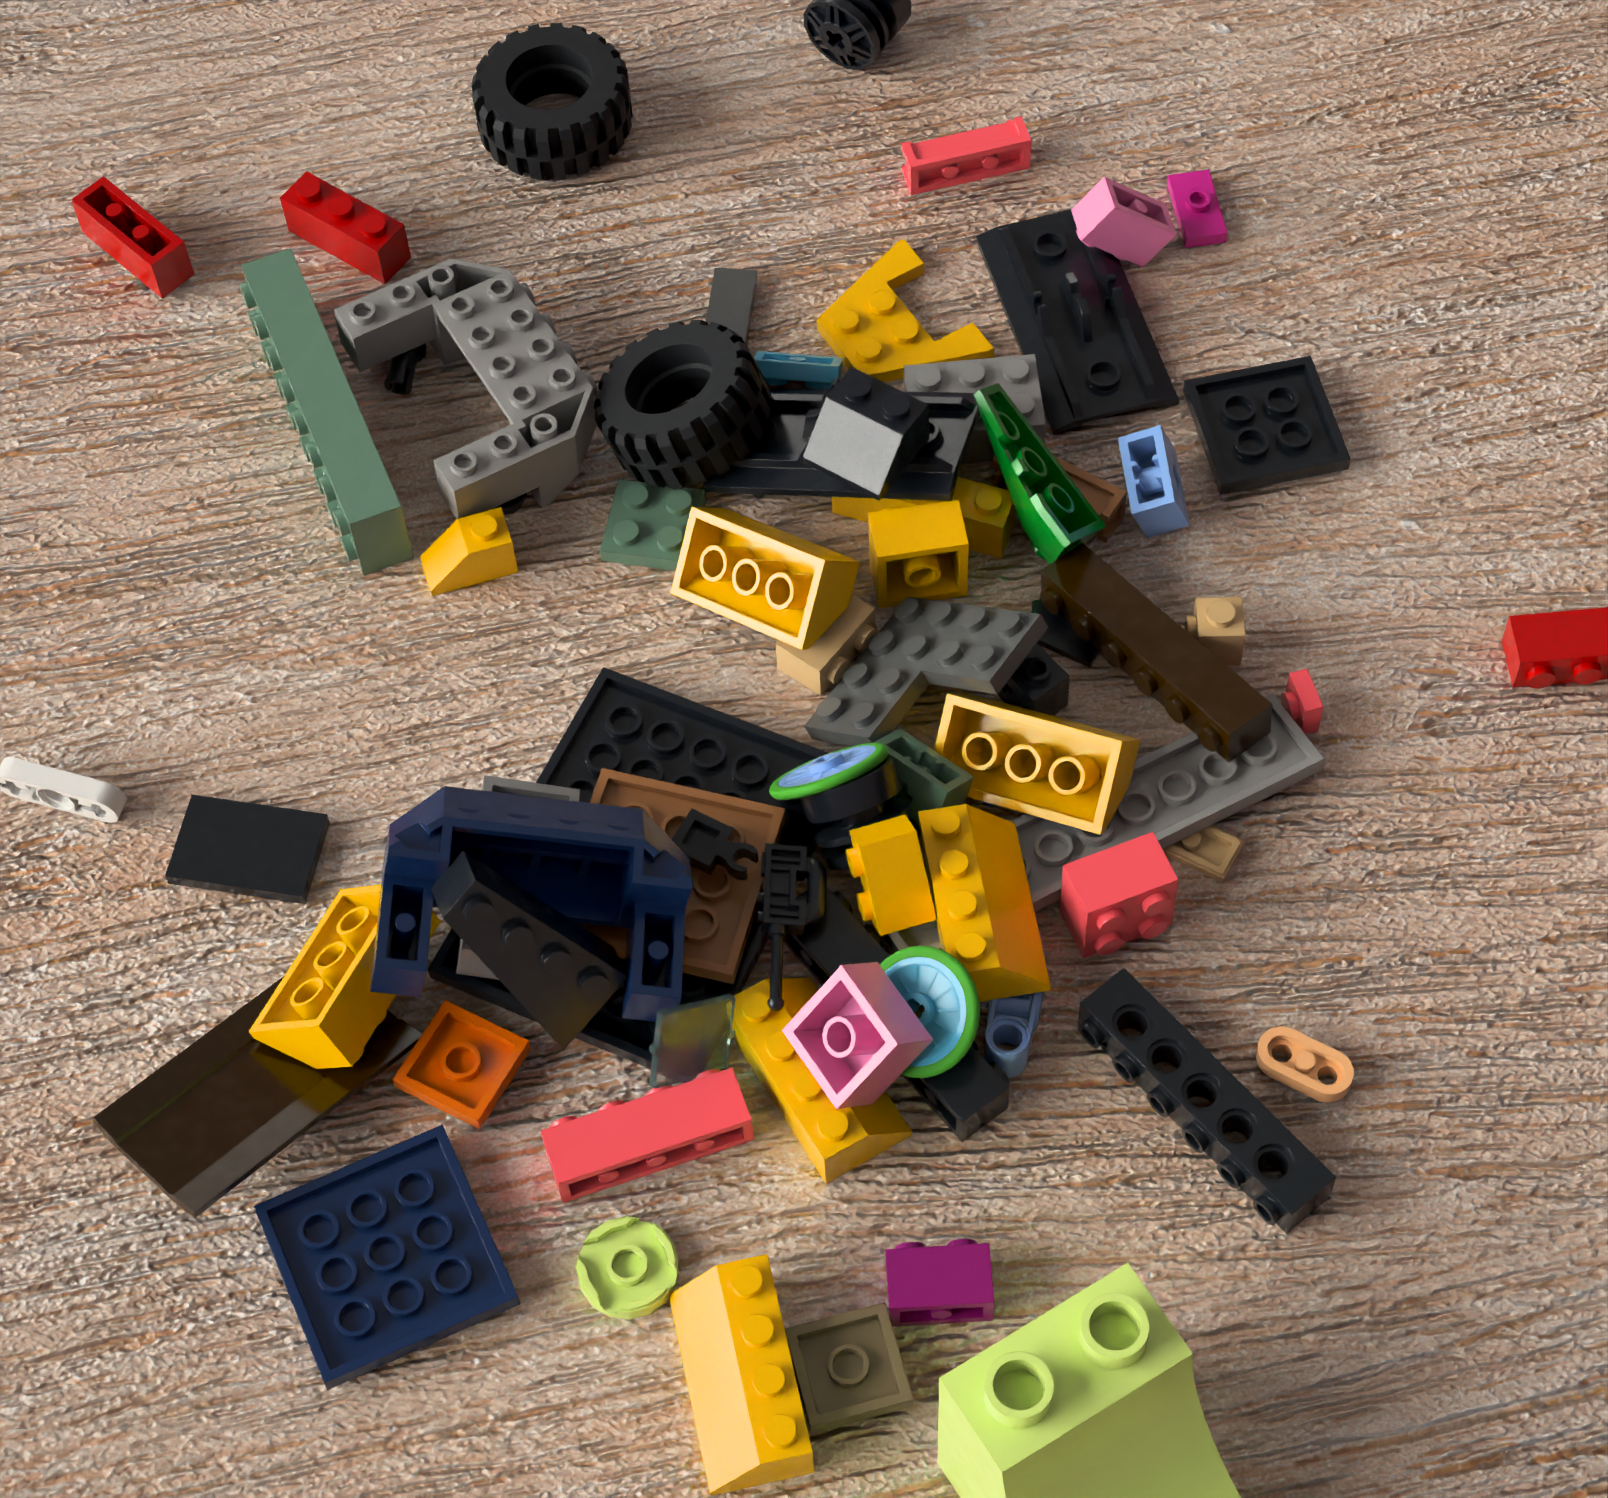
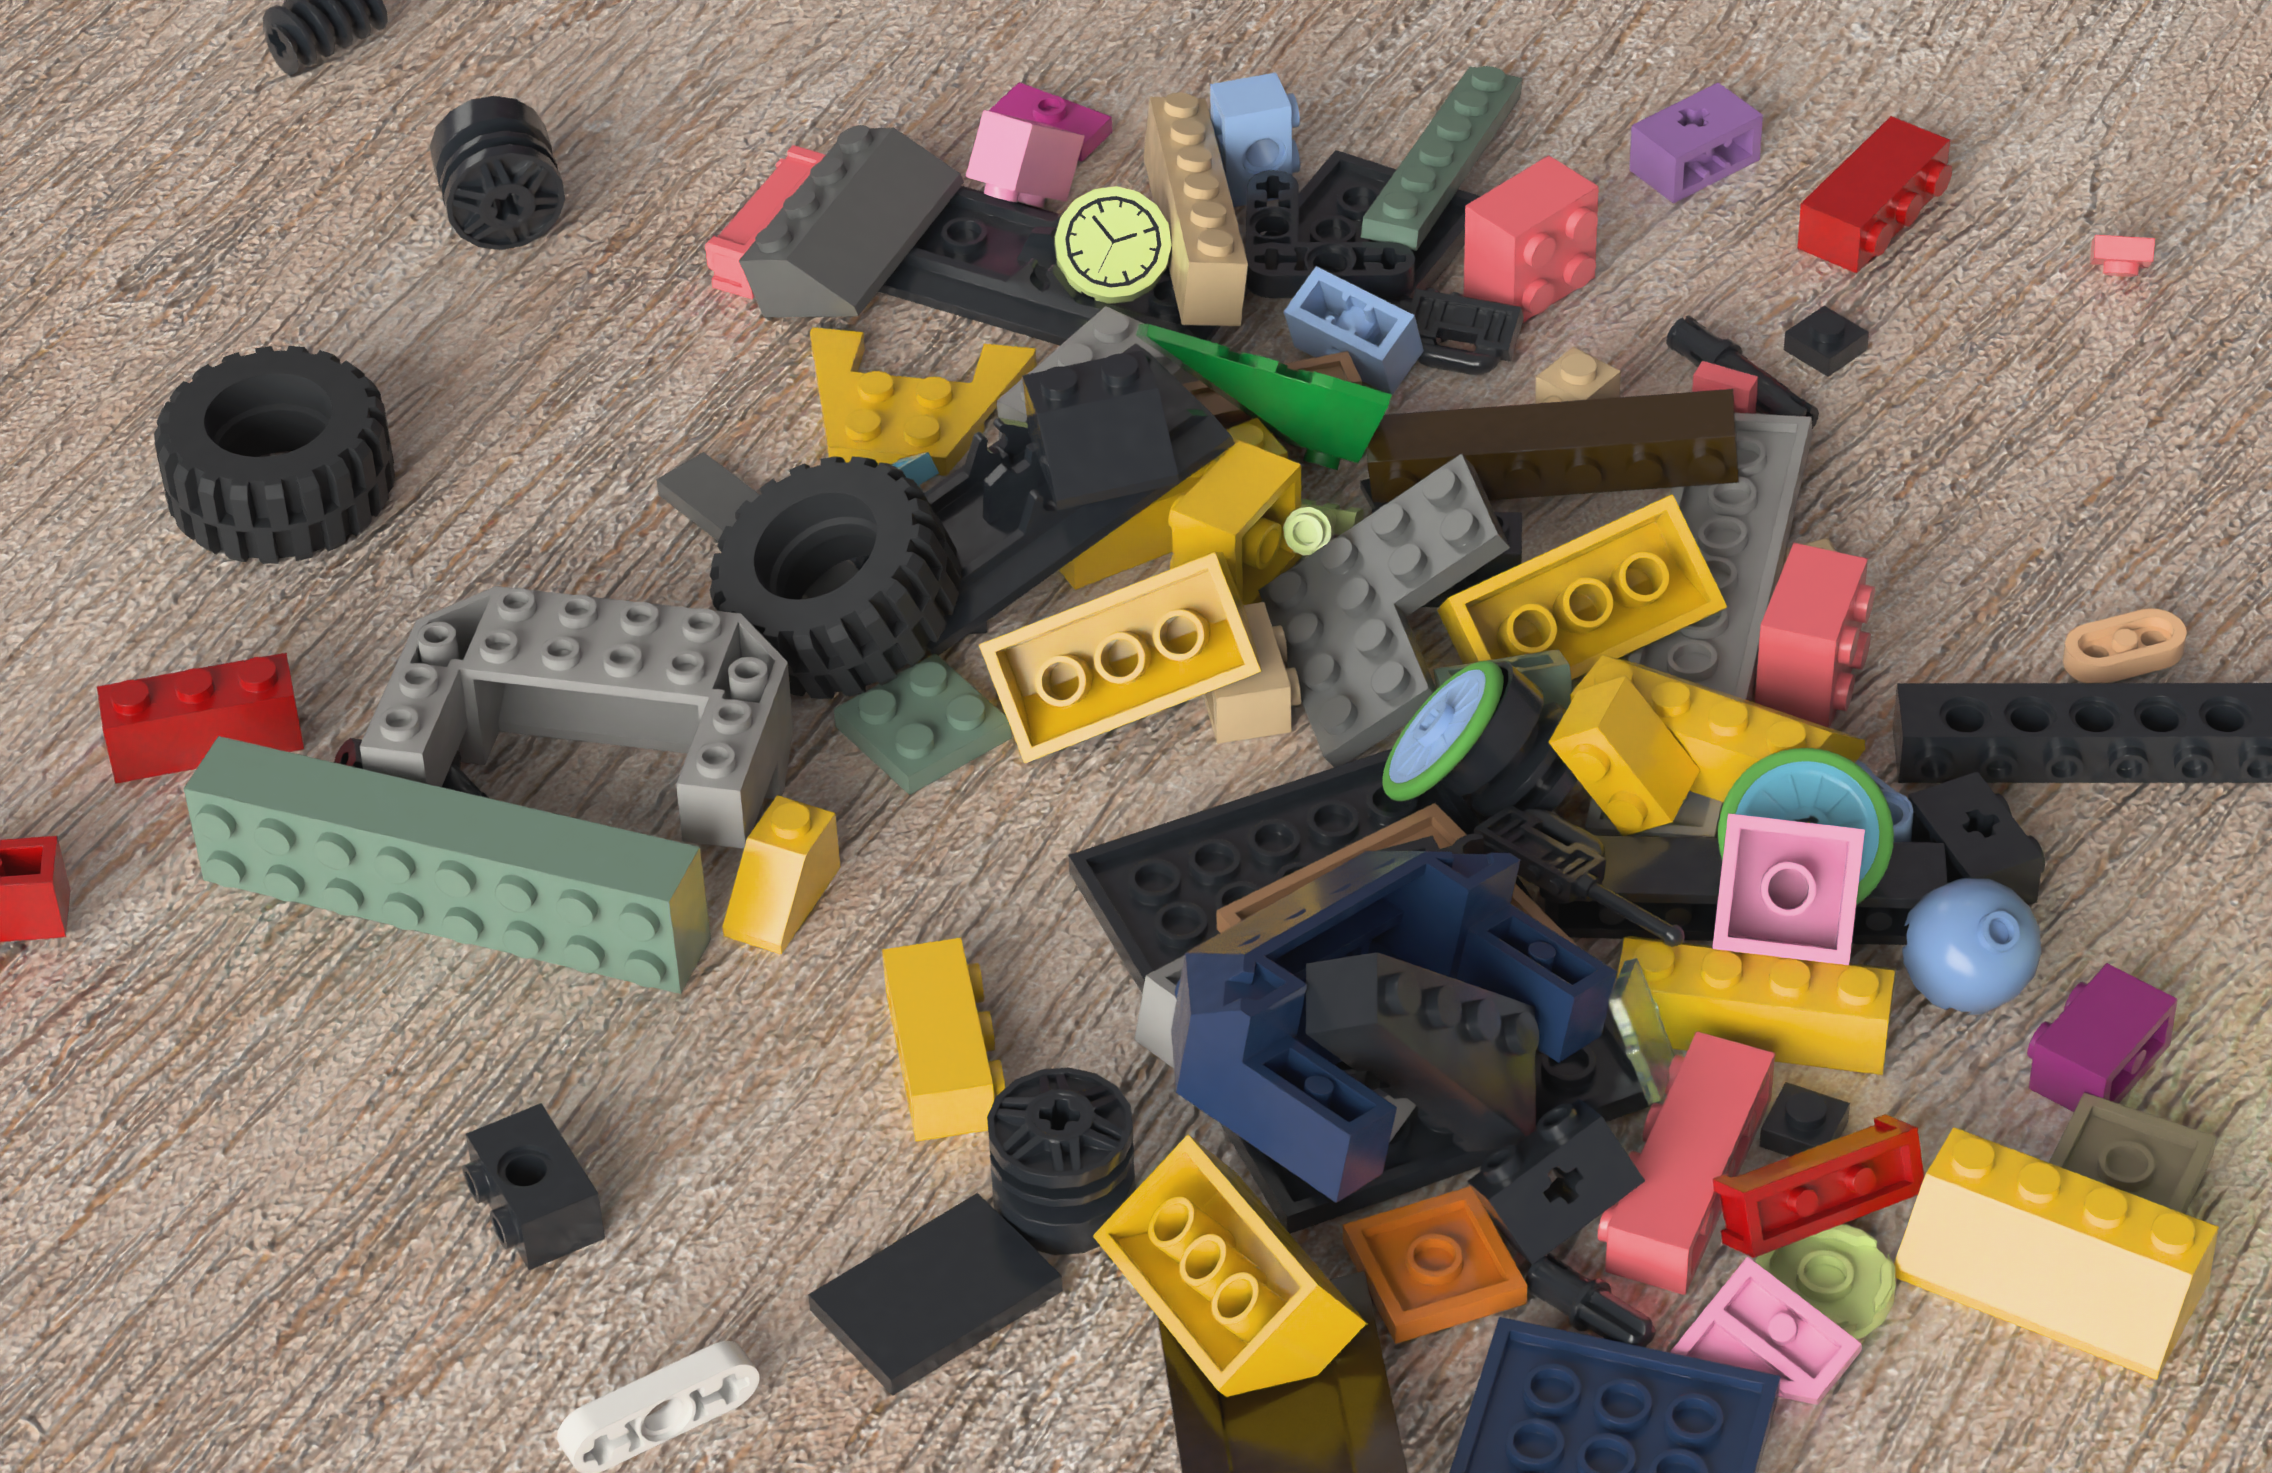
camera: 50 degrees left, 15 degrees down
(157, 644) = (533, 1186): none -> black brick
(353, 825) = (1060, 1157): none -> black wheel
(417, 713) = (942, 1038): none -> yellow brick
(497, 1162) = (1588, 1303): none -> black axle
(544, 1080) = (1589, 1171): none -> black brick
(544, 1269) = (1771, 1330): none -> bright pink wing
(674, 1215) = (1821, 1187): none -> red container
(741, 1171) = (1802, 1120): none -> black plate
(943, 1159) = (1971, 945): none -> medium blue cylinder
(989, 189) = (848, 225): none -> dark grey slope
(992, 579) = (1314, 525): none -> yellowish green hinge
(1022, 1123) = (1978, 835): none -> black brick
(1088, 318) = (1113, 244): none -> yellowish green tile
(1162, 332) = (1194, 197): none -> tan brick
(1185, 407) = (1273, 262): none -> black beam
(1221, 510) = (1453, 317): none -> black piece
(1260, 312) = (1254, 130): none -> light blue brick
(1320, 508) = (1532, 238): none -> coral brick
(1339, 680) = (1699, 344): none -> black pin
(1358, 410) = (1442, 157): none -> sand green plate
(1424, 716) = (1826, 341): none -> black plate
(1524, 521) = (1695, 142): none -> medium lavender brick

